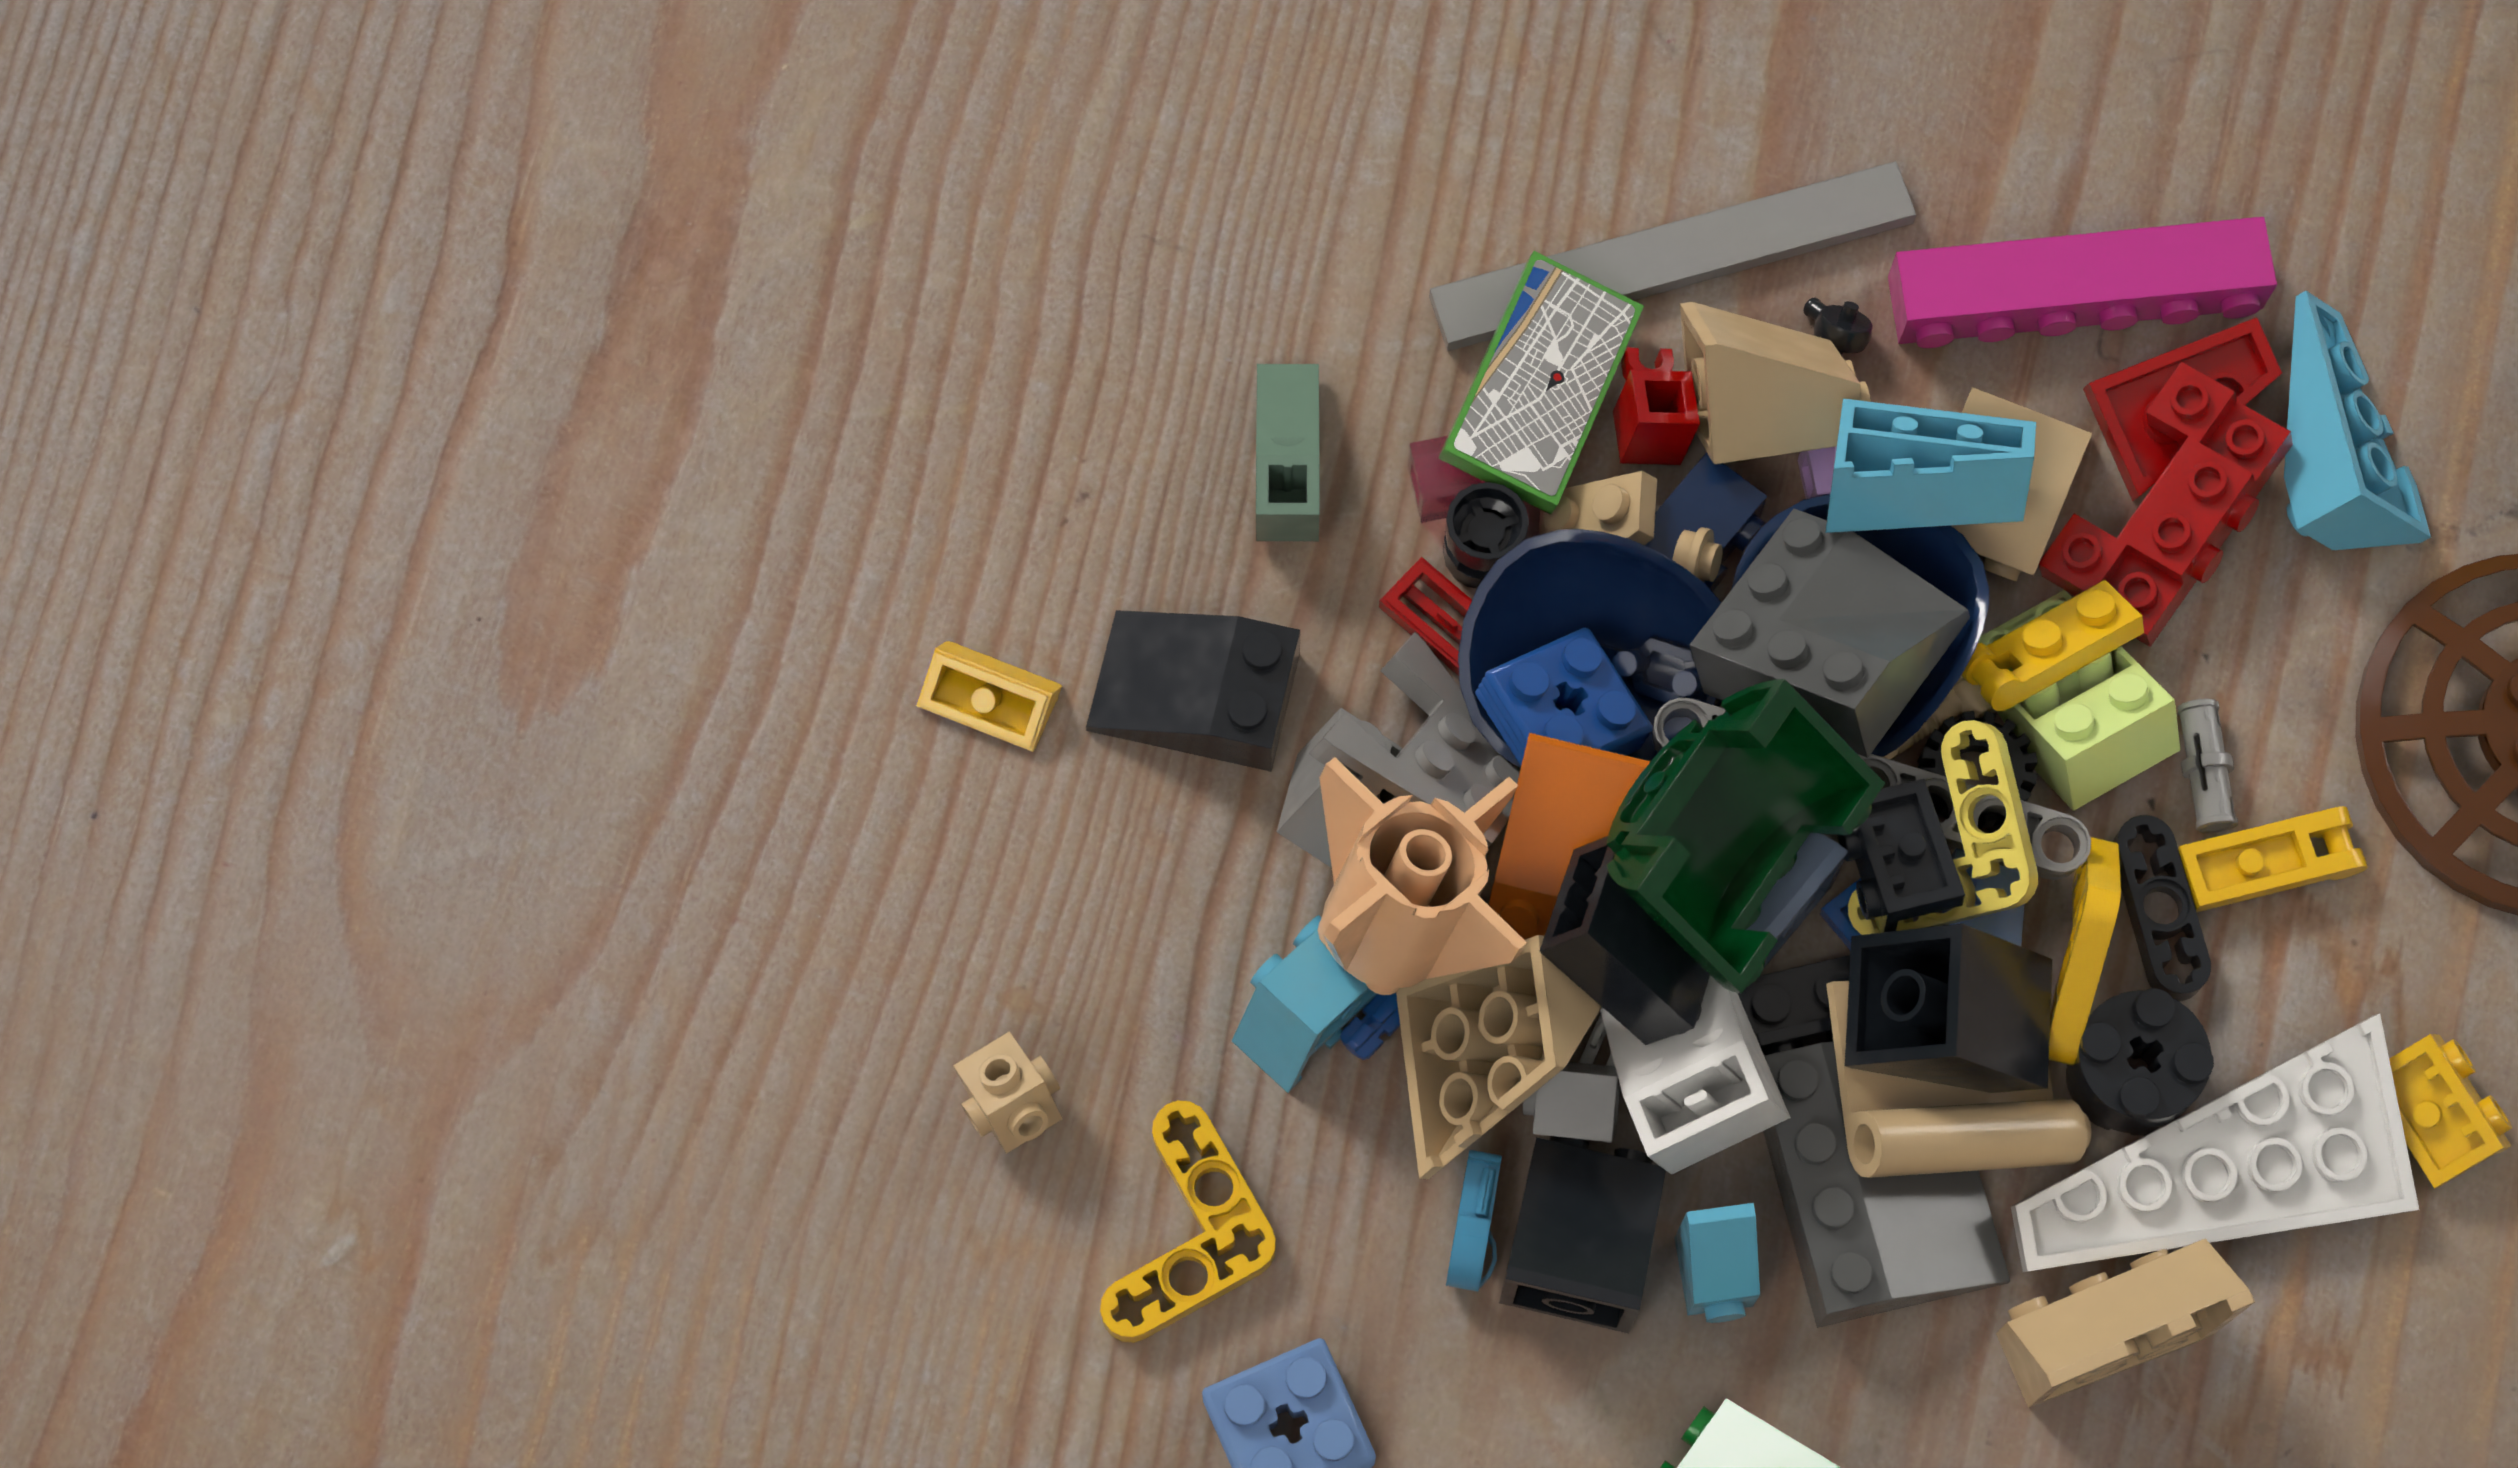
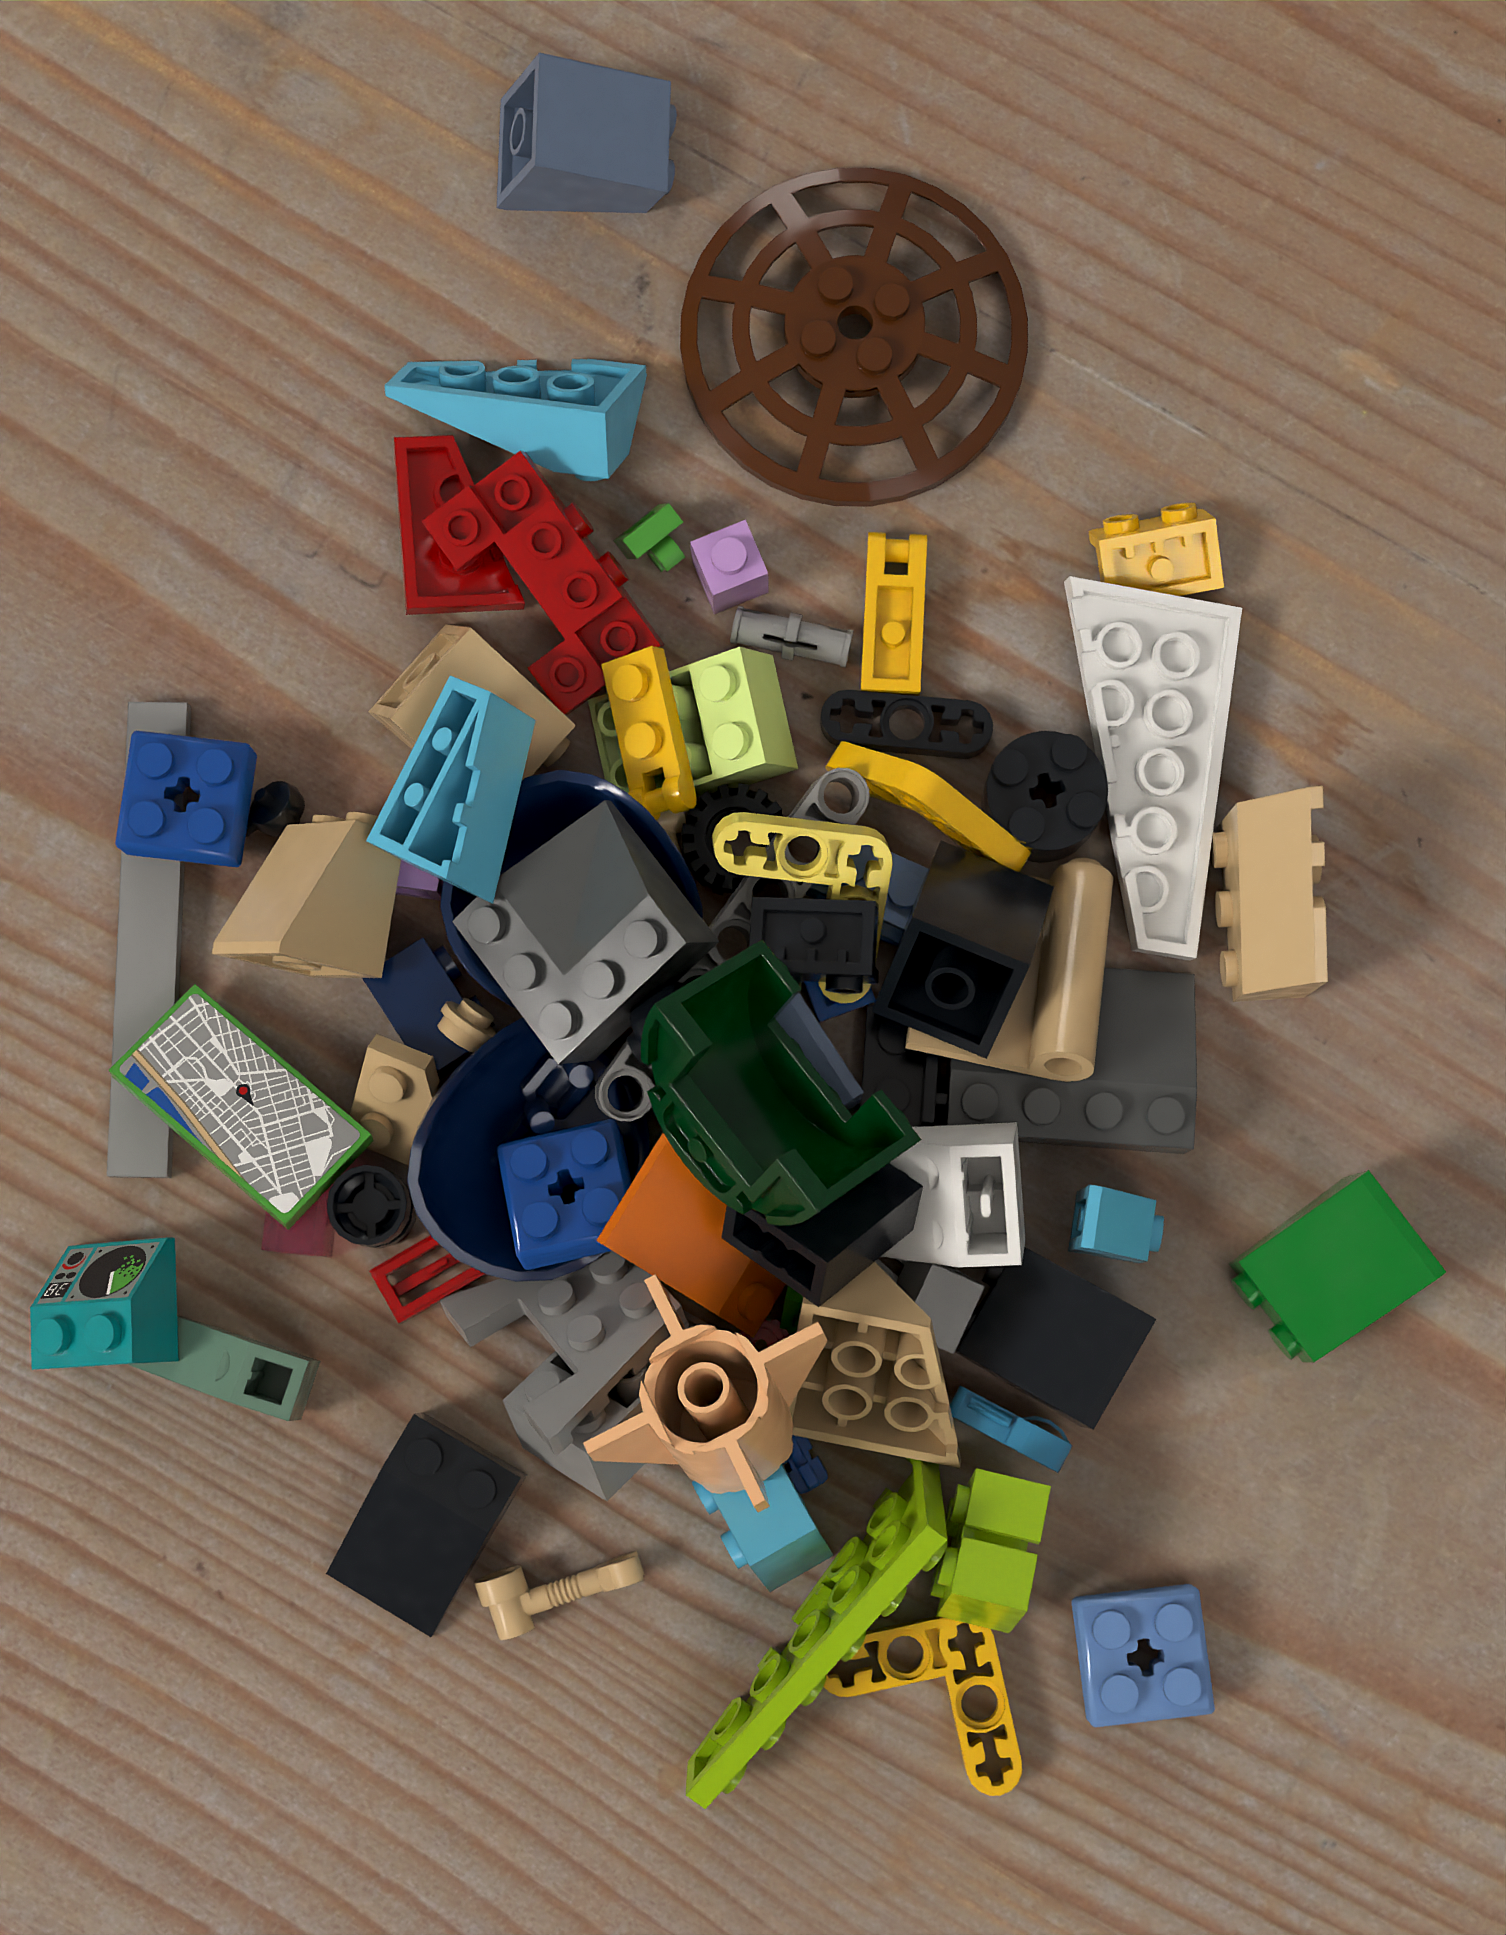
camera: 70 degrees left, 10 degrees up
(988, 695) = (368, 1720): yellow slope -> none
(1008, 1092) = (766, 1822): tan brick -> none
(1143, 793) = (514, 1603): none -> tan brick
(1216, 1091) = (857, 1587): none -> lime wing
(1304, 325) = (108, 1306): none -> teal slope
(1369, 1224) = (986, 1569): none -> lime piece
(1655, 411) = (301, 1009): red brick -> none
(1798, 267) = (209, 829): none -> blue brick
(2081, 281) = (305, 578): dark pink brick -> none
(2254, 678) = (729, 566): none -> lavender brick
(2255, 593) = (651, 537): none -> bright green tile

